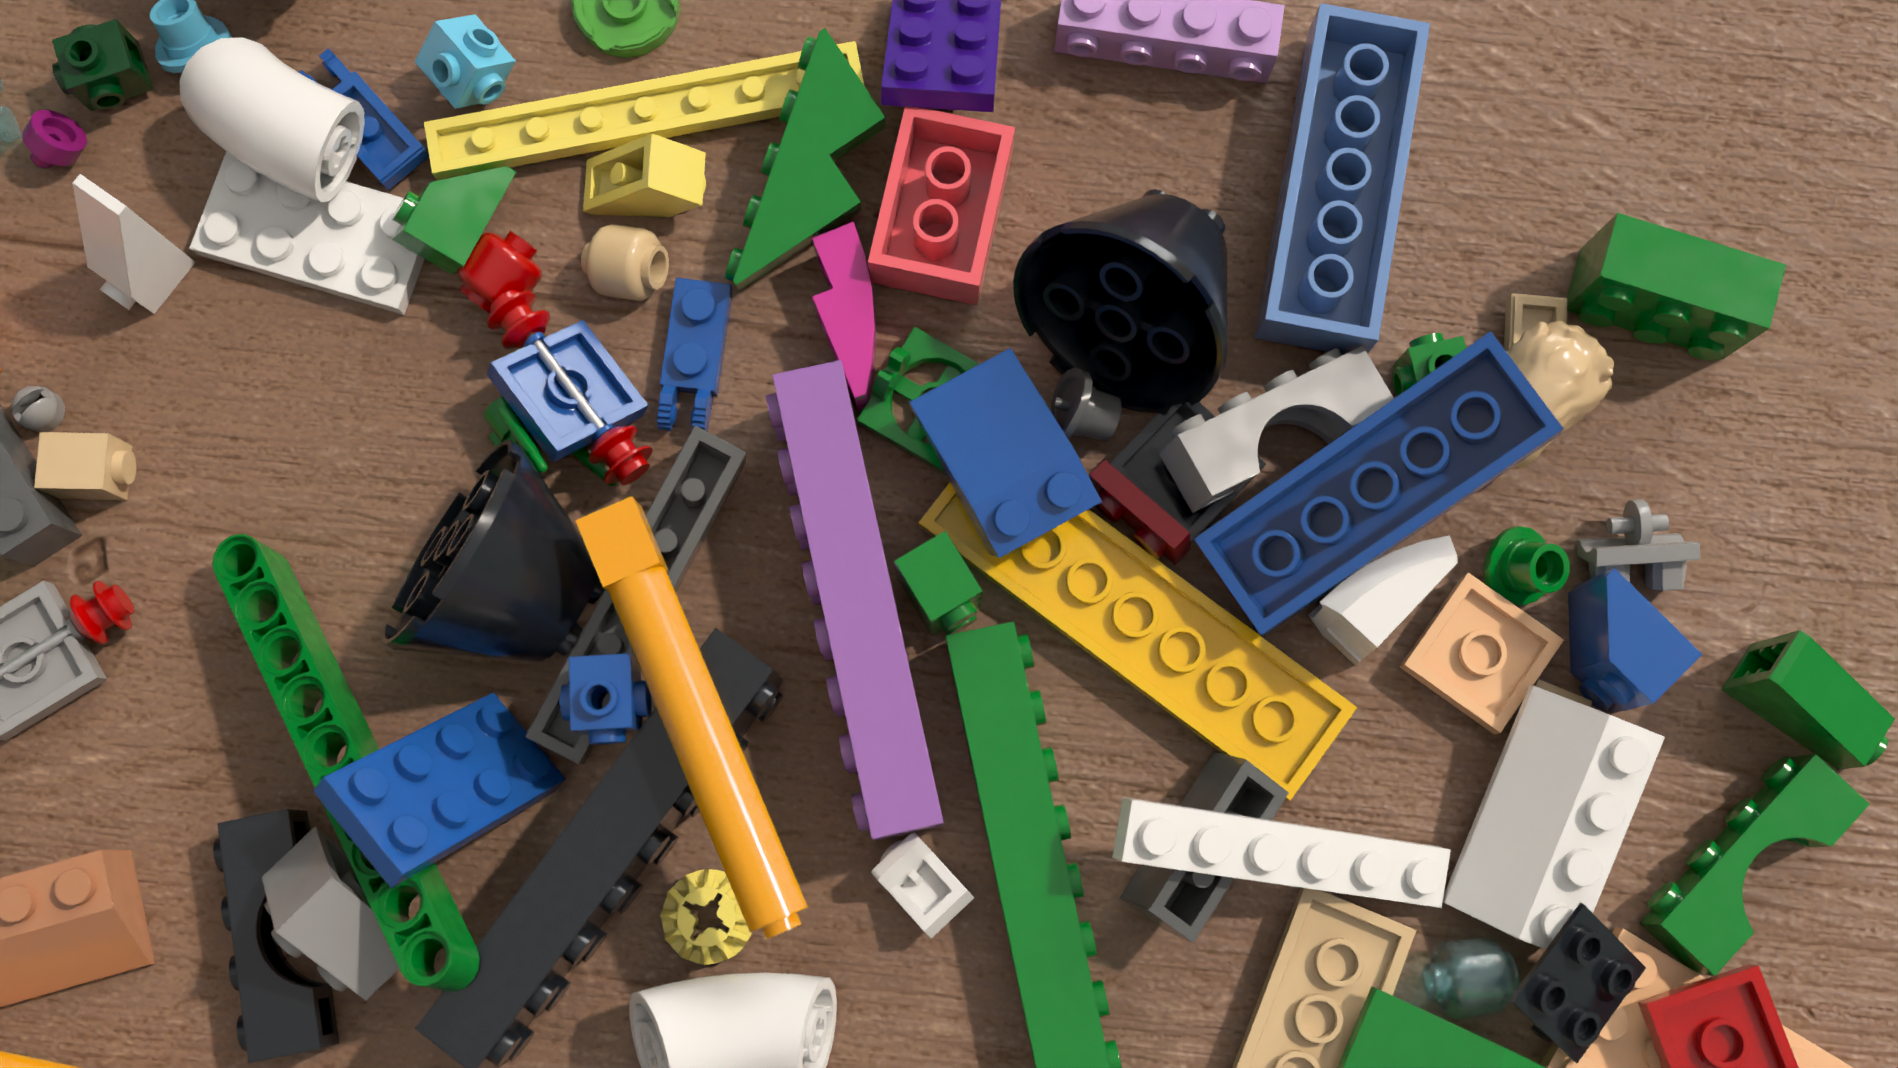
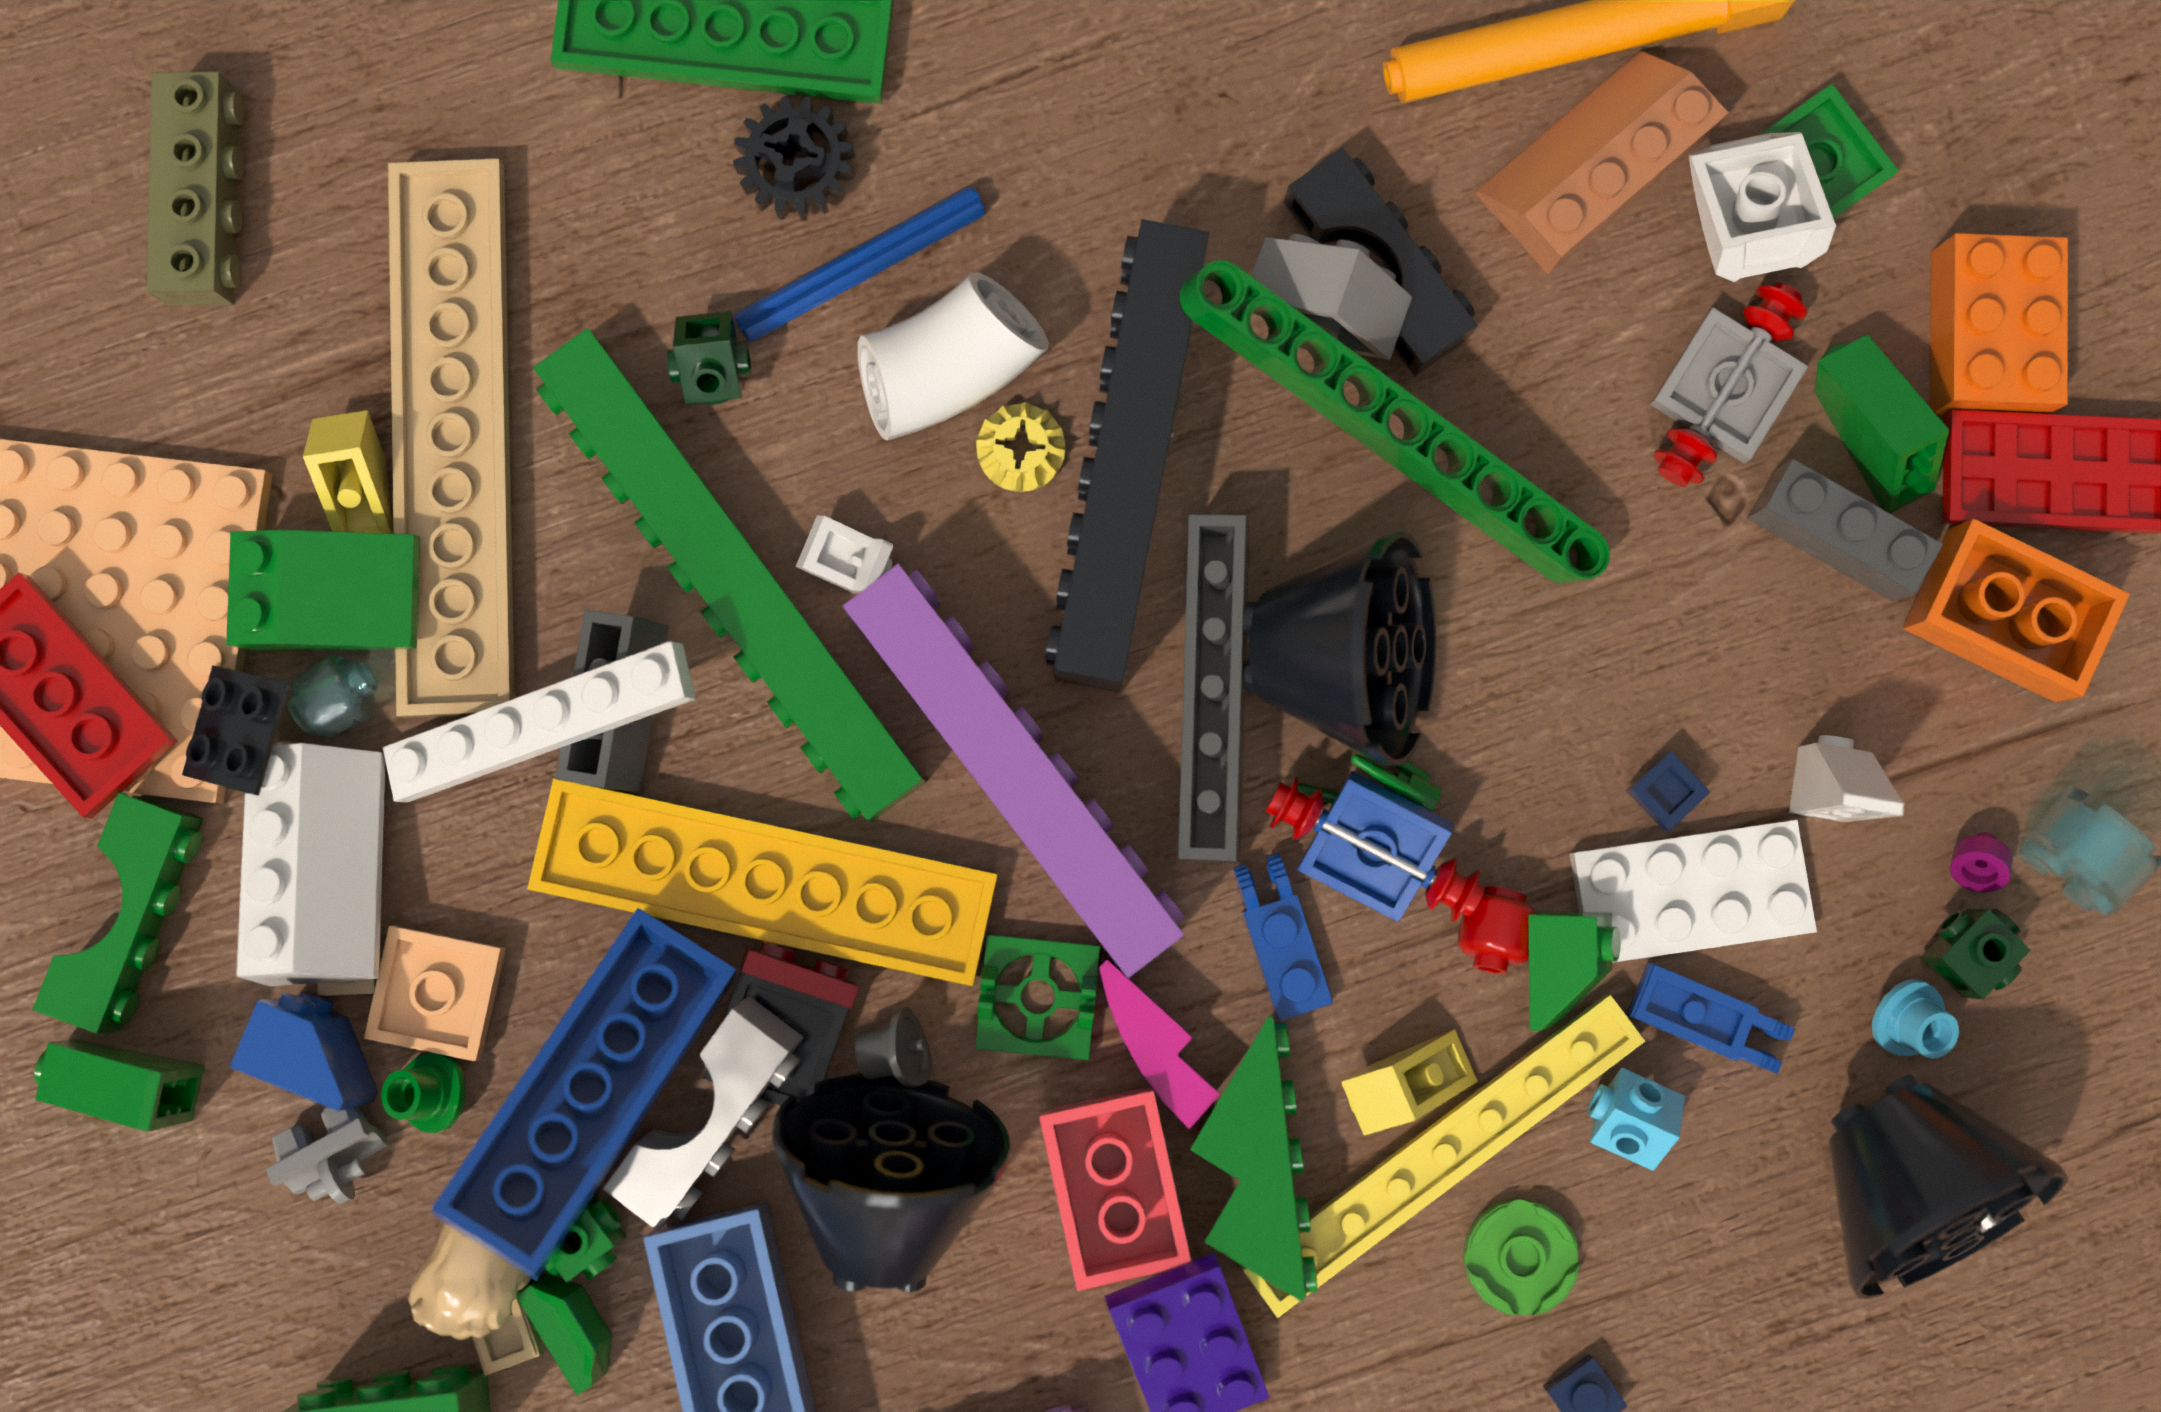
camera: 155 degrees right, 5 degrees up
(41, 415) = (1840, 605): light grey hinge -> none
(84, 466) = (1773, 576): tan brick -> none
(273, 116) = (1783, 972): white brick -> none
(286, 323) = (1668, 791): none -> dark blue plate
(438, 788) = (1294, 437): blue plate -> none
(590, 682) = (1183, 596): blue brick -> none
(625, 262) = (1386, 993): tan head -> none
(693, 716) = (1156, 641): light orange brick -> none
(940, 585) = (946, 819): green brick -> none
(1004, 453) = (942, 966): blue slope -> none
(1381, 595) = (538, 994): white slope -> none
(1475, 297) = (569, 1329): none -> green slope

